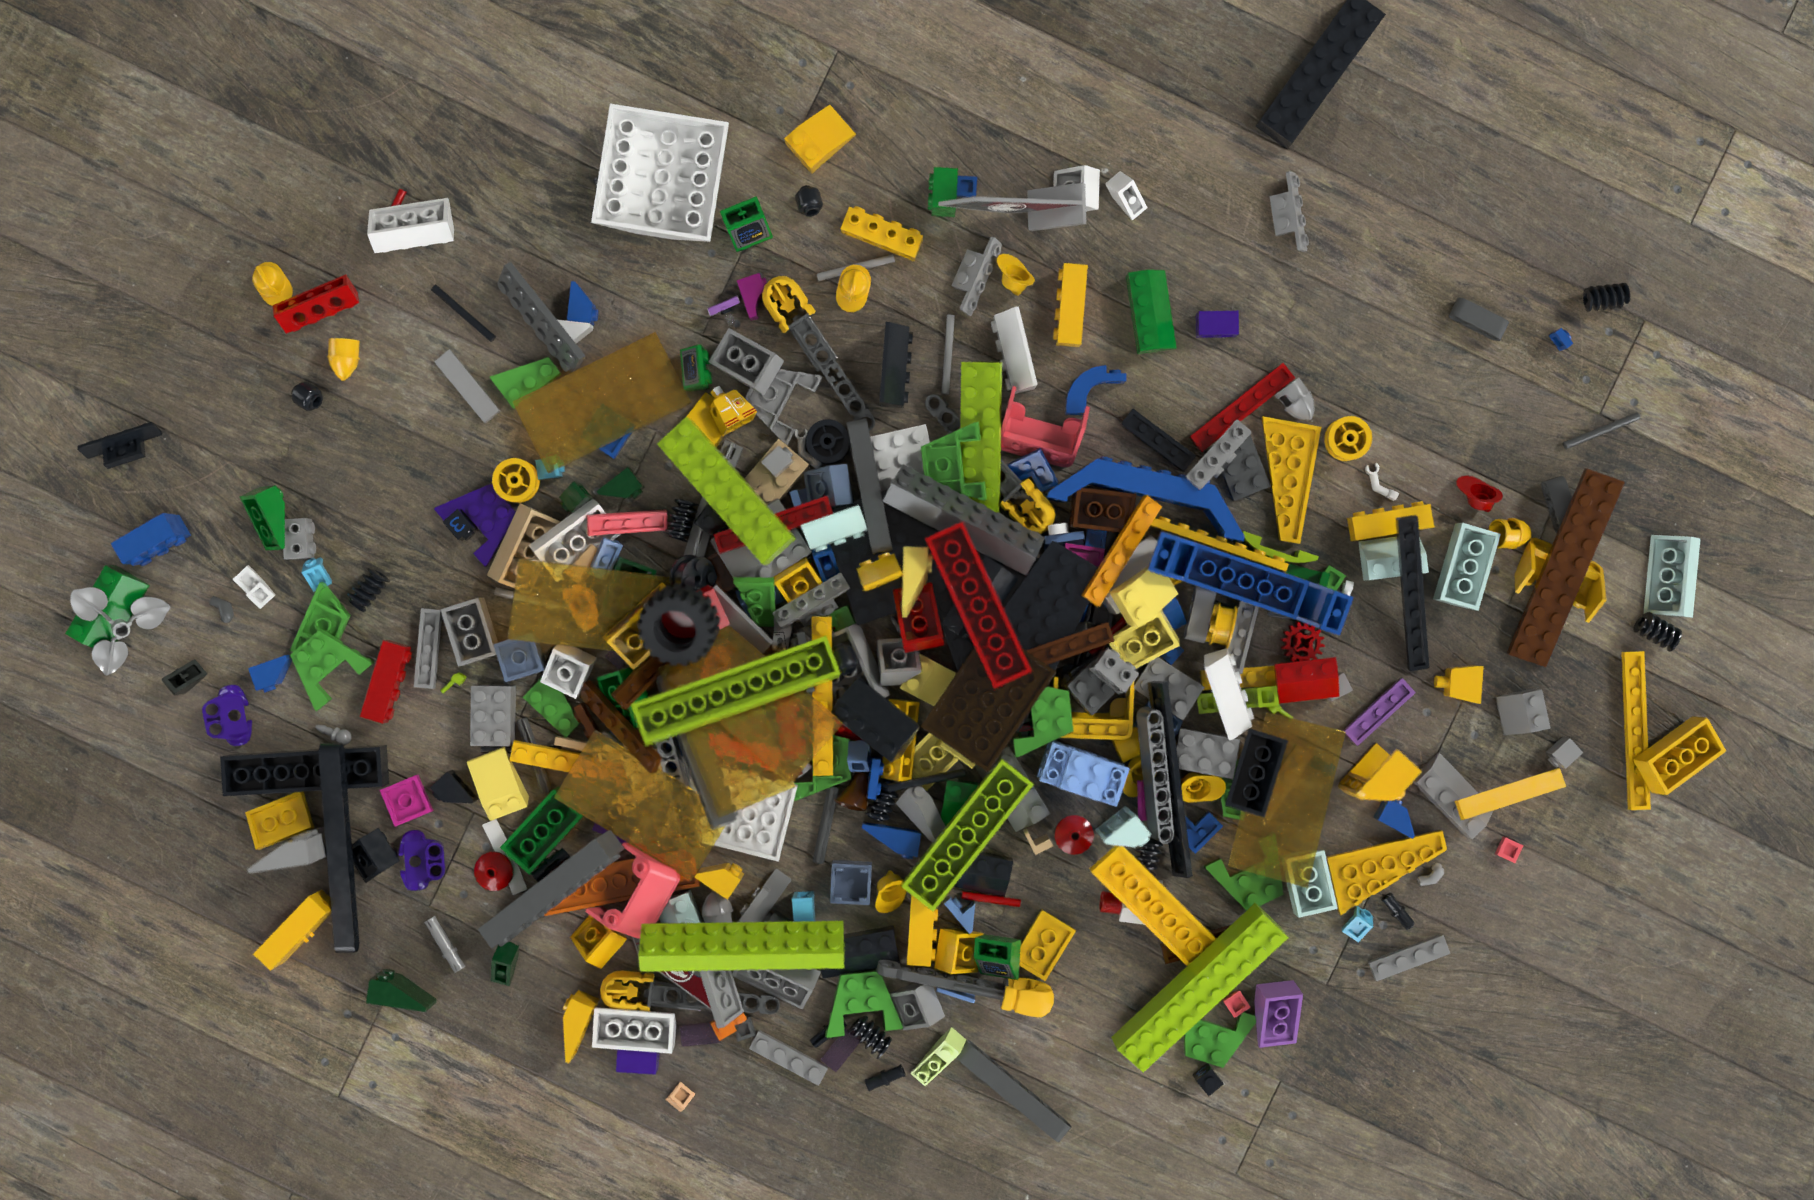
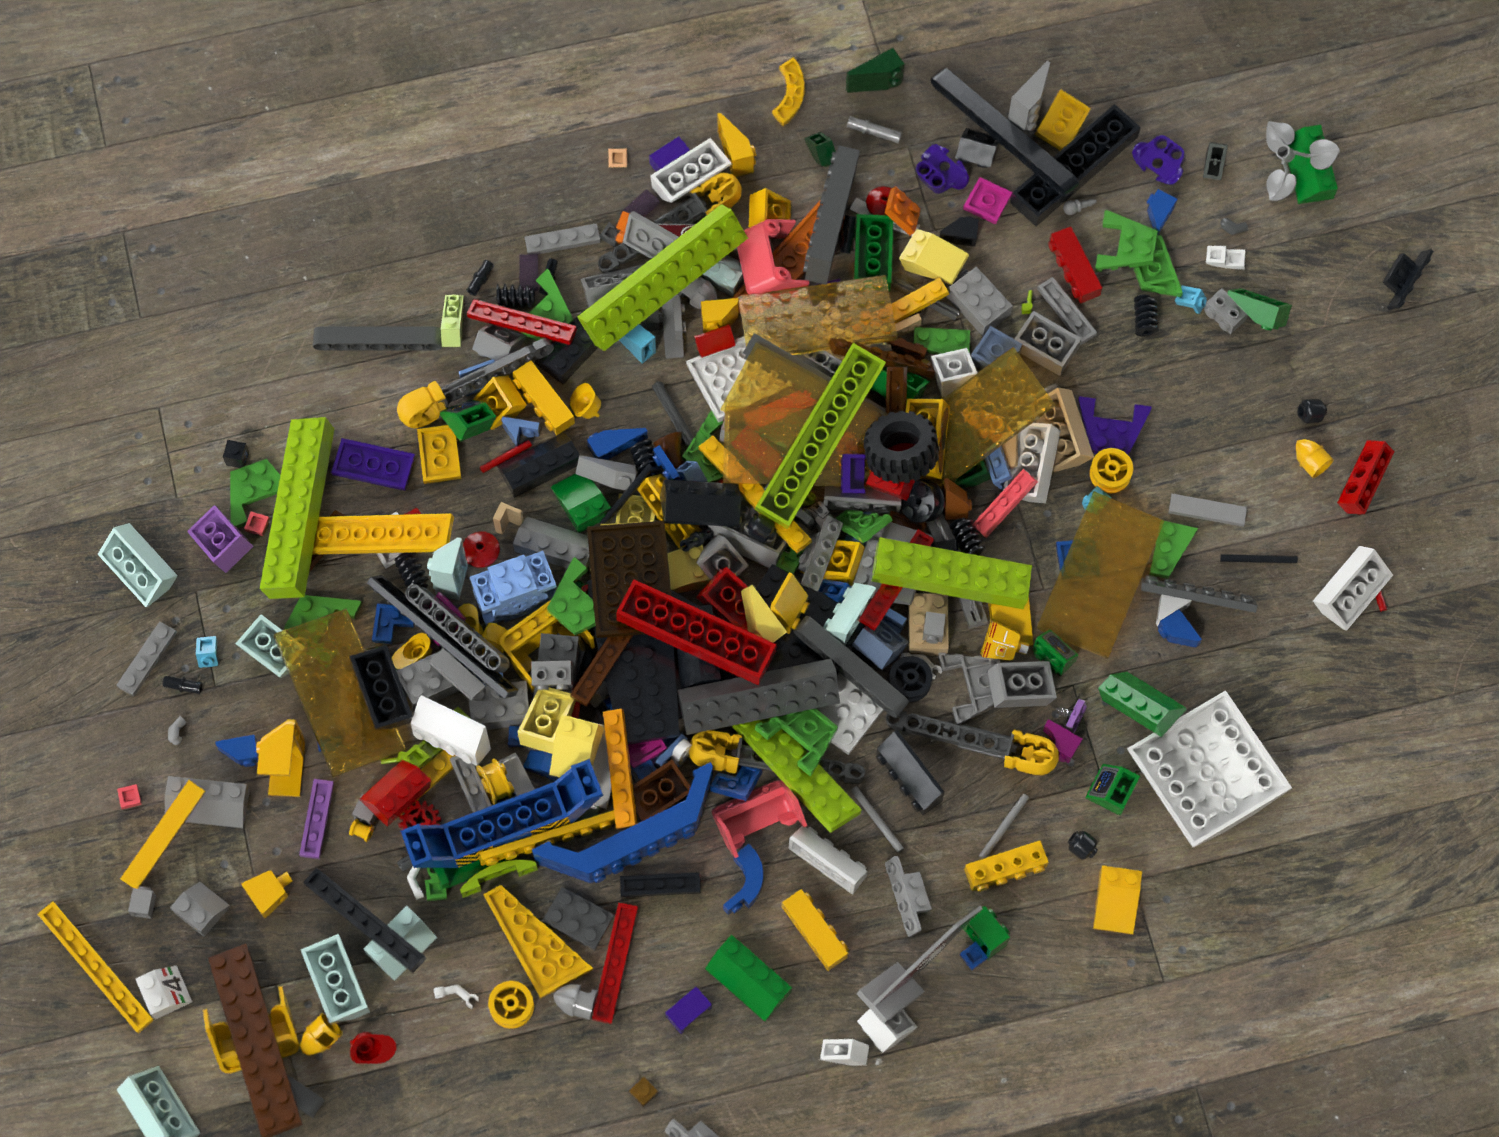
camera: 140 degrees right, 20 degrees down
(151, 539) = (1322, 229): blue brick -> none
(272, 283) = (1411, 469): yellow piece -> none
(295, 930) = (984, 58): yellow brick -> none
(460, 525) = (1121, 409): black brick -> none
(481, 1035) = (794, 92): none -> yellow tile
(487, 847) = (902, 210): none -> orange plate
(574, 497) = (1057, 493): dark green slope -> none
(624, 485) = (1030, 529): dark green slope -> none
(663, 269) = (1141, 702): none -> green slope
(664, 556) = (956, 501): none -> dark orange slope
(734, 640) = (852, 473): none -> dark purple panel
(741, 858) = (715, 341): none -> red slope
(851, 882) = (620, 387): sand blue container -> none
(853, 288) = (992, 809): yellow piece -> none
(886, 1006) = (521, 321): none -> plate
(903, 694) = (696, 539): none -> black pin
(966, 834) = (564, 477): lime brick -> none
(1014, 274) = (880, 919): yellow piece -> none
(1103, 979) = (373, 464): none -> dark purple plate
(1185, 735) = (457, 674): none -> light grey tile
(1221, 452) = (604, 900): light grey bracket -> none
(1299, 292) = (643, 1091): none -> pearl gold plate
(1352, 673) = (361, 830): none -> yellow bush
(1357, 1046) = (137, 564): none -> light aqua slope
(1373, 868) = (227, 700): yellow wing -> none
(1384, 522) = (438, 952): yellow brick -> none
(1599, 667) = (163, 991): none -> white slope
(1659, 630) = (137, 1058): black piece -> none
(1679, 755) = (47, 969): yellow brick -> none

